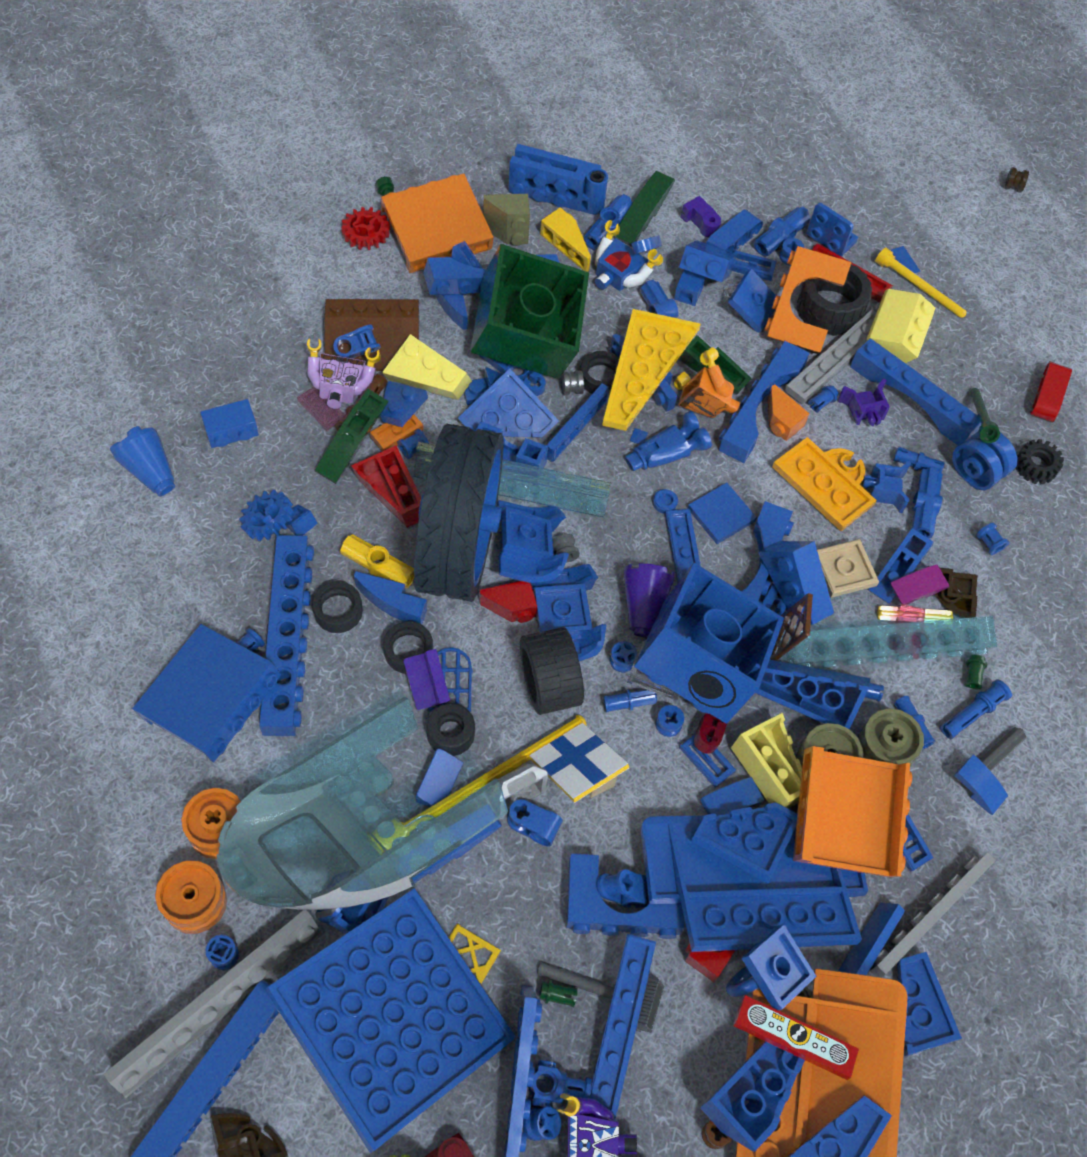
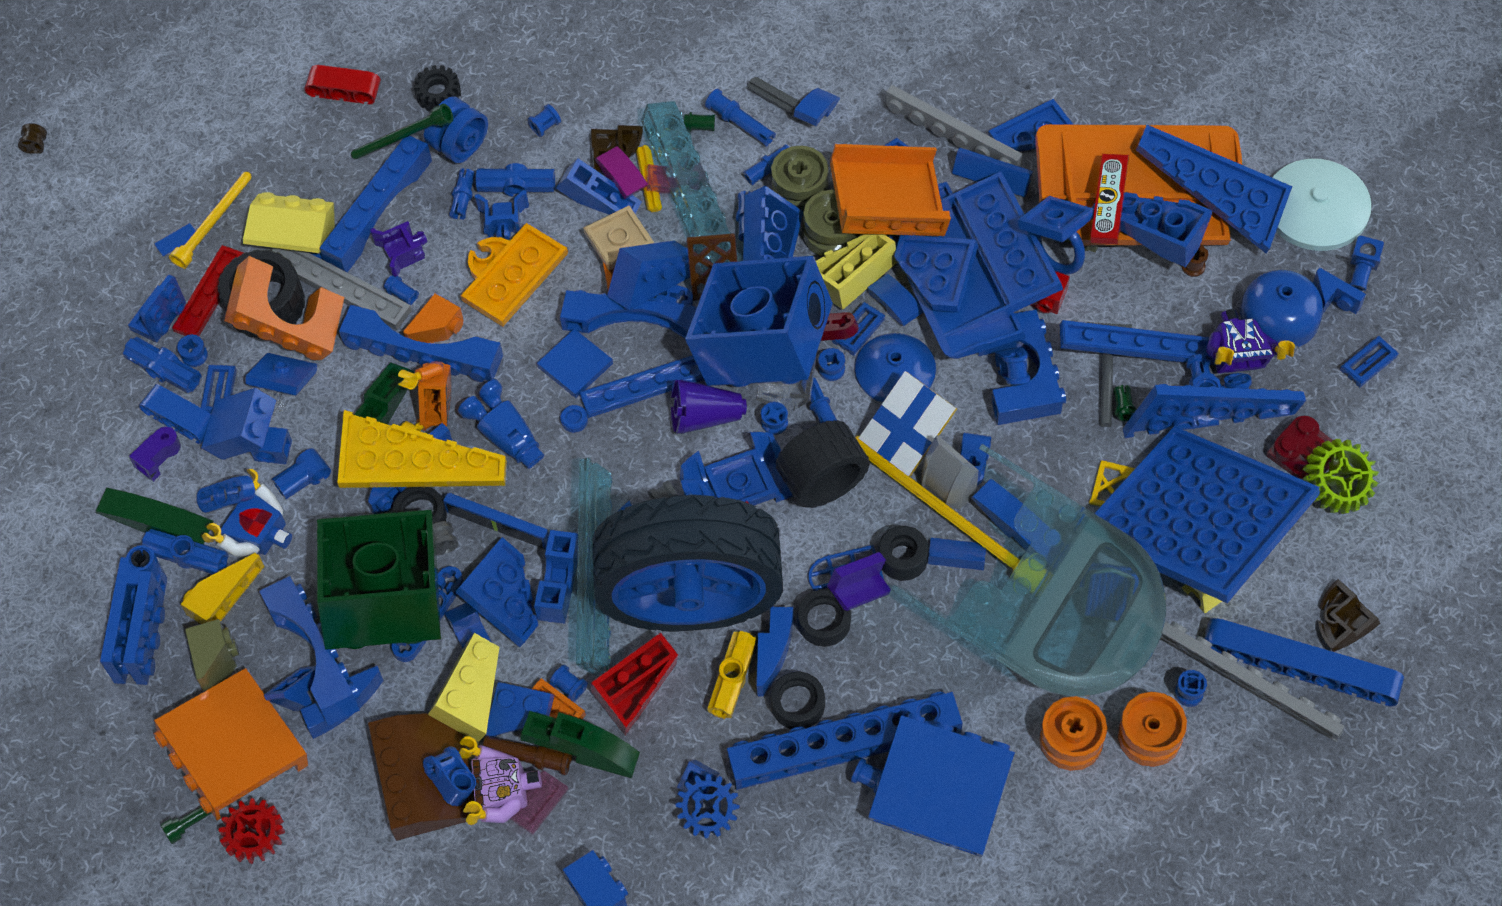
camera: 95 degrees left, 0 degrees up
(651, 796) = (878, 372): none -> blue dish

